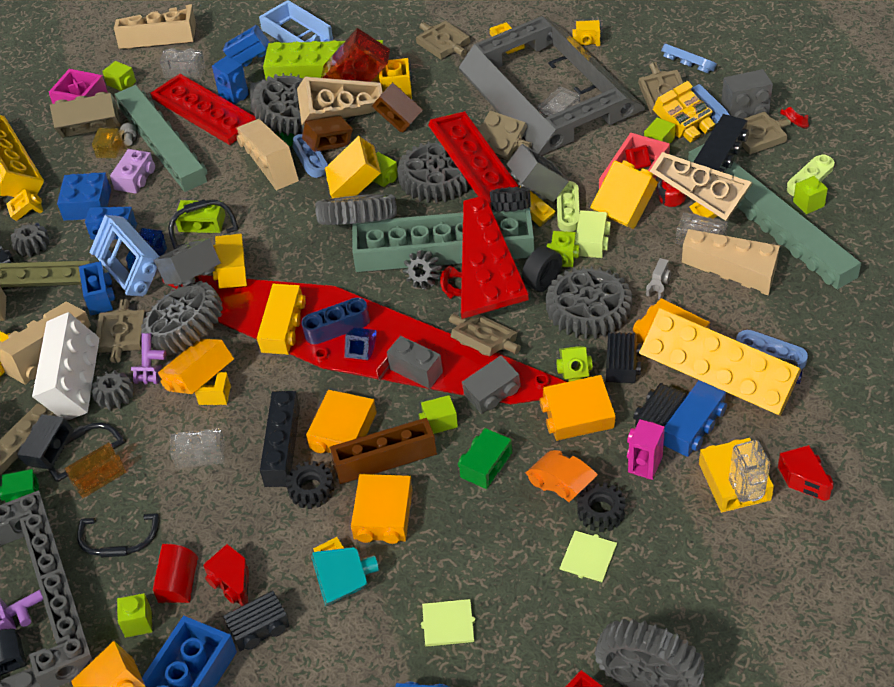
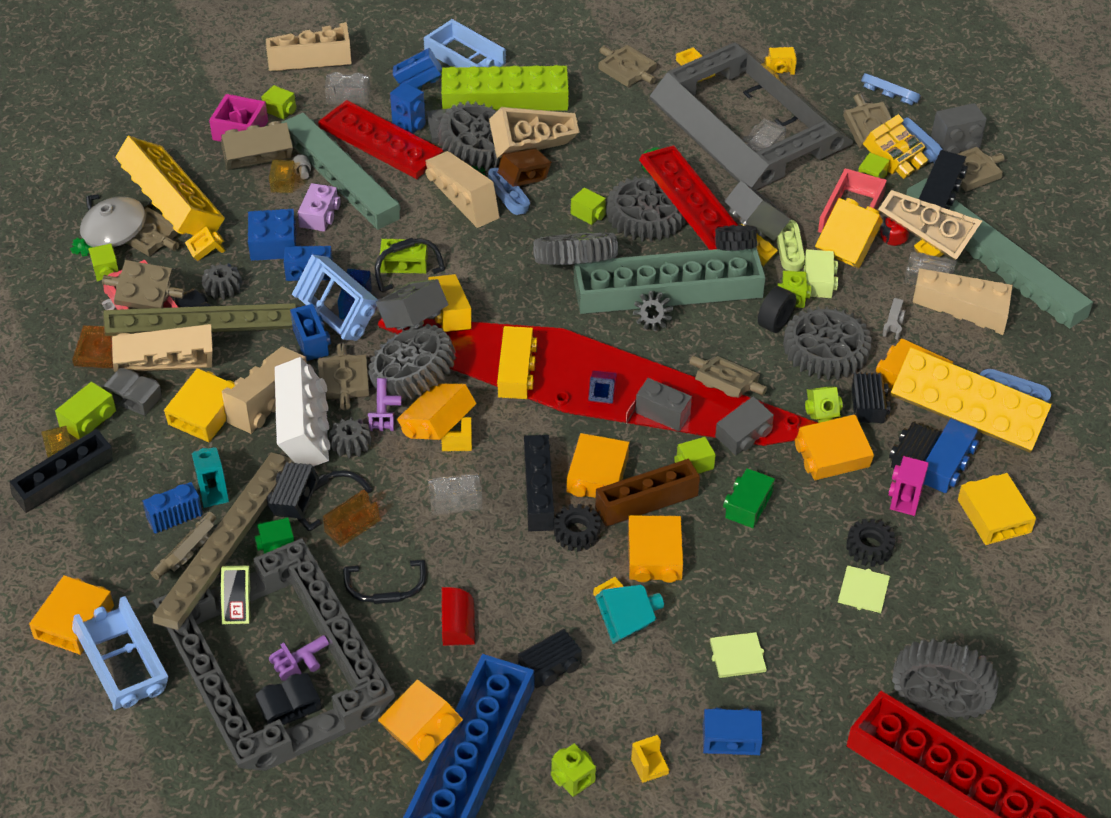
camera: 10 degrees left, 0 degrees up
(134, 615) = (426, 657): lime brick -> none
(230, 573) = (514, 615): red slope -> none
(335, 320) = (573, 363): dark blue beam -> none
(352, 169) = (561, 206): yellow brick -> none
(357, 59) = (548, 88): clear red brick -> none
(397, 107) = (595, 140): reddish brown brick -> none
(398, 73) = (588, 108): yellow head -> none
(448, 289) = (681, 331): red piece -> none
(488, 268) = (723, 308): red wing -> none
(503, 134) = (713, 168): dark tan plate -> none
(561, 474) = (829, 511): orange brick -> none
(638, 157) = (855, 192): red tile -> none
(749, 471) = (1015, 503): clear brick -> none
(797, 119) = (1010, 154): red piece -> none
(804, 472) = (1062, 506): red slope -> none
(810, 194) = (1033, 233): lime brick -> none
(819, 167) = (1030, 213): yellowish green plate -> none

